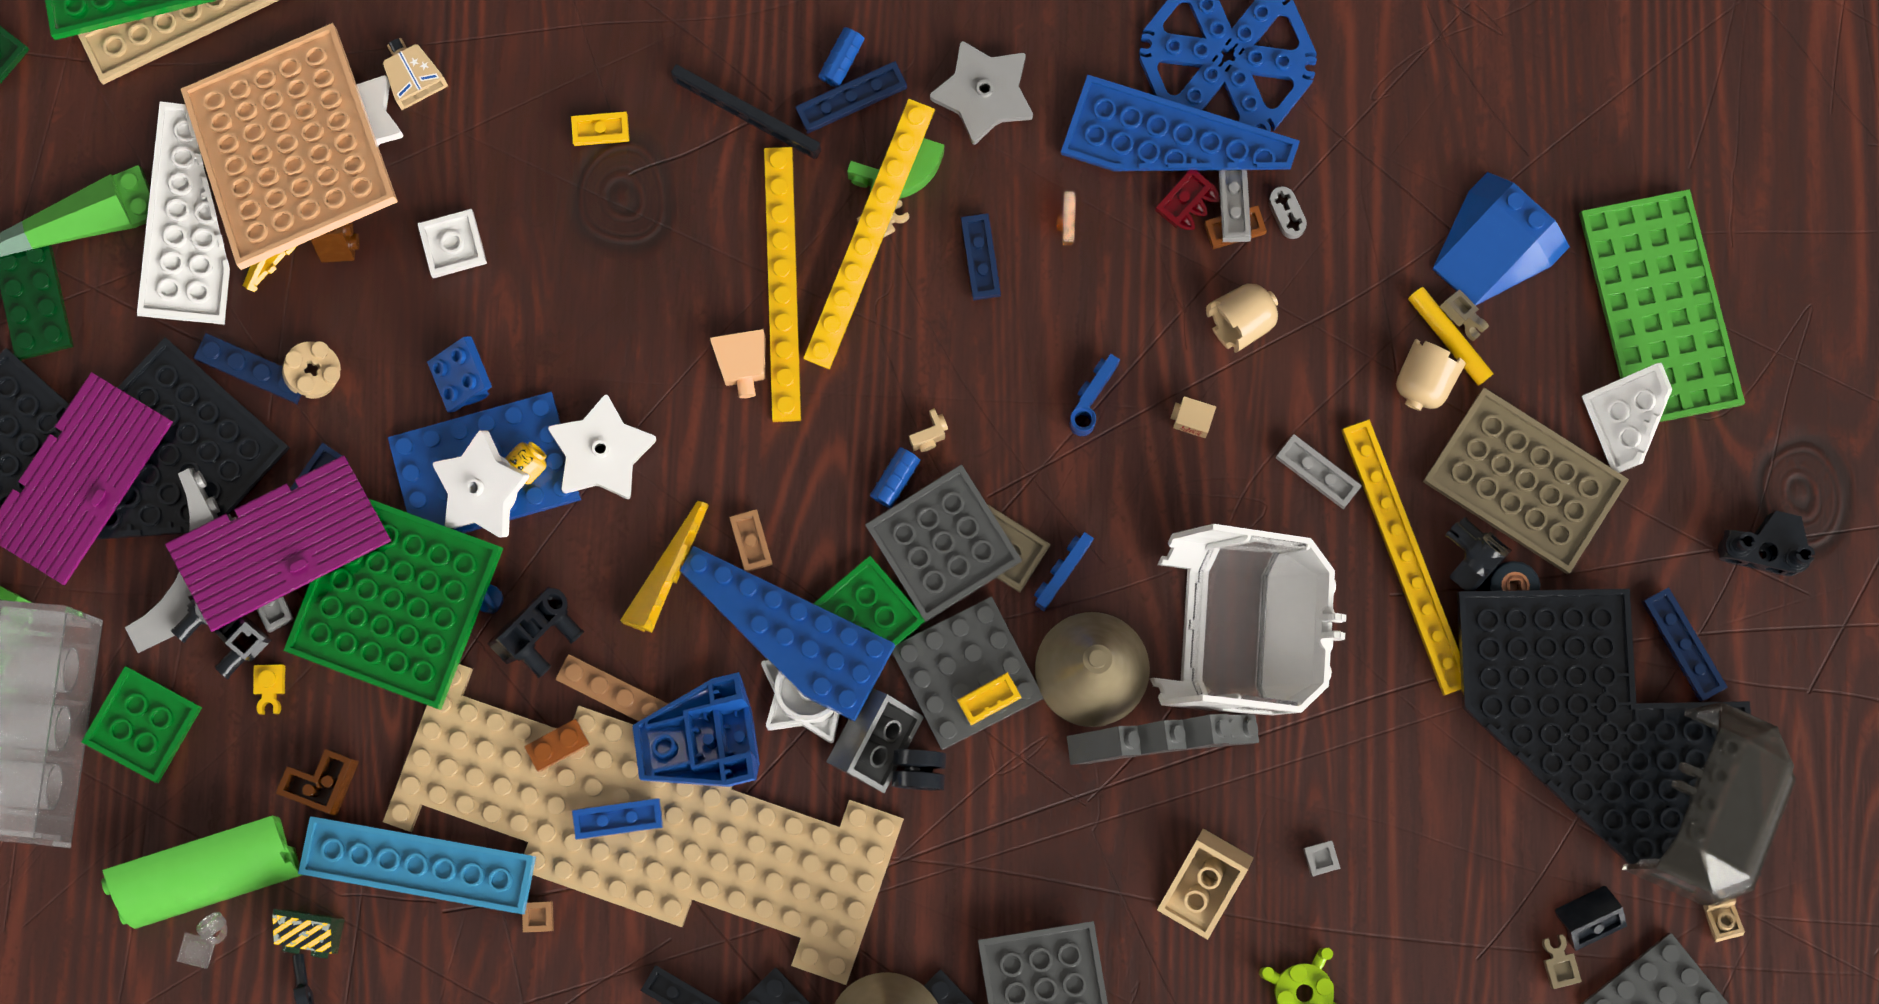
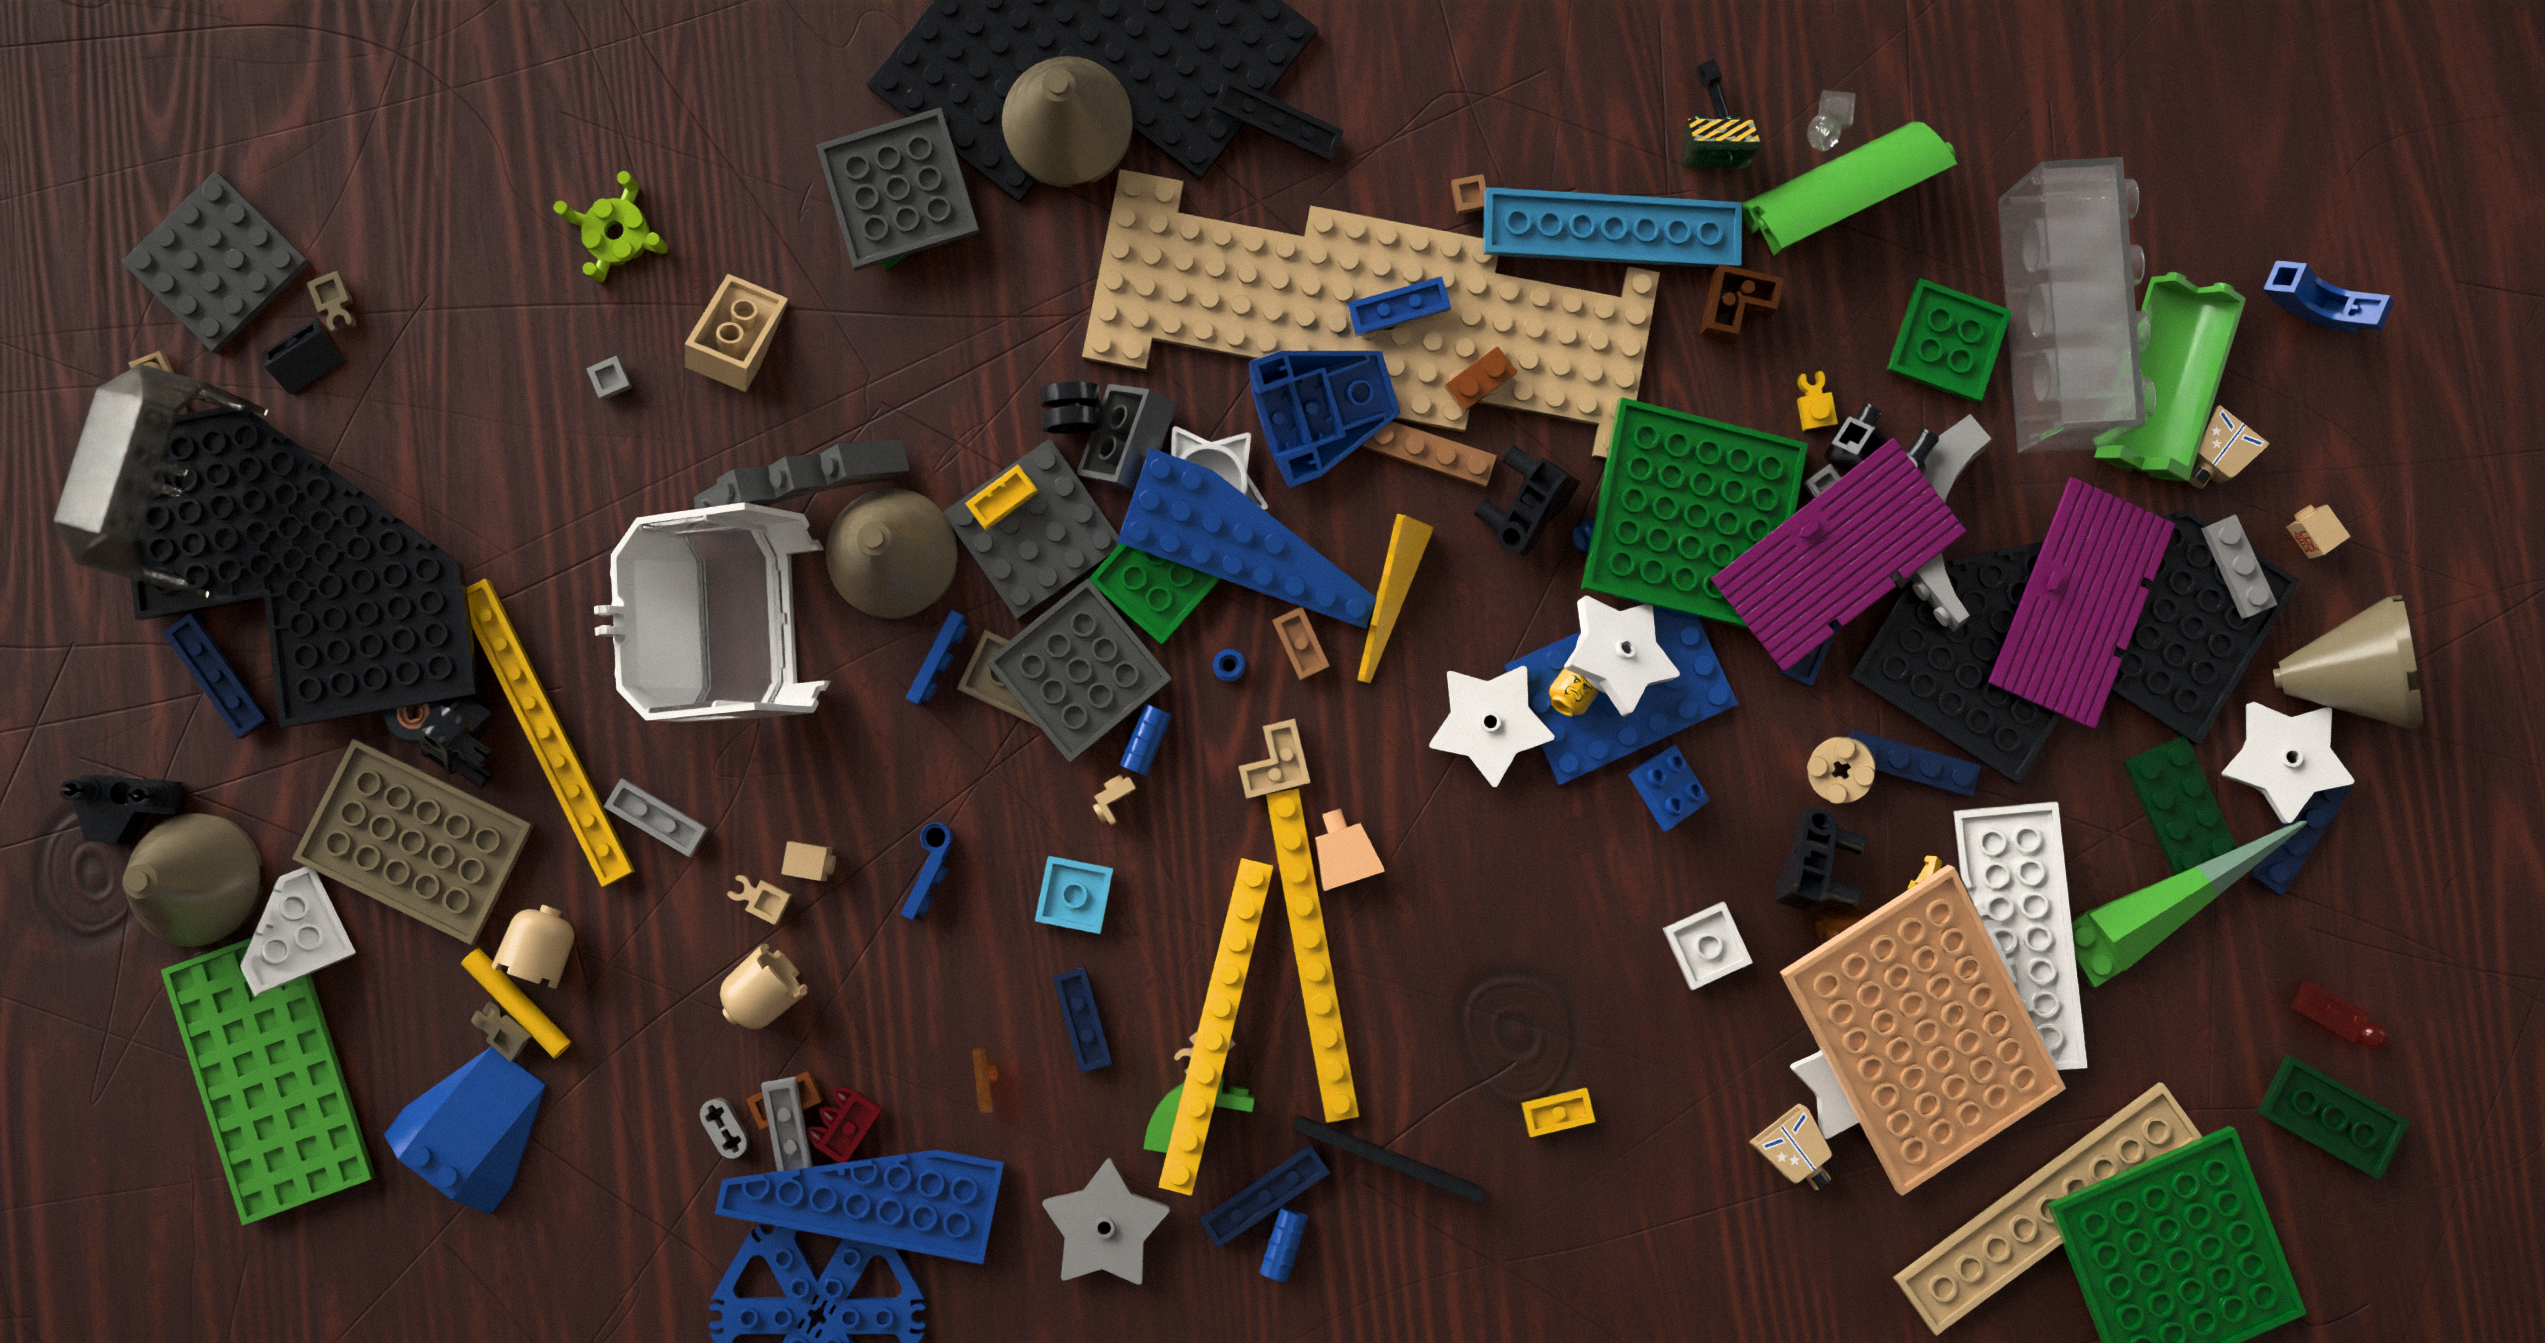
camera: 165 degrees right, 5 degrees up
(362, 286) = (1804, 876): none -> black piece
(781, 438) = (1283, 769): none -> tan plate
(815, 523) = (1229, 654): none -> blue plate
(973, 358) = (1074, 894): none -> medium azure plate
(1233, 389) = (764, 901): none -> tan plate
(1714, 476) = (194, 879): none -> dark tan cone

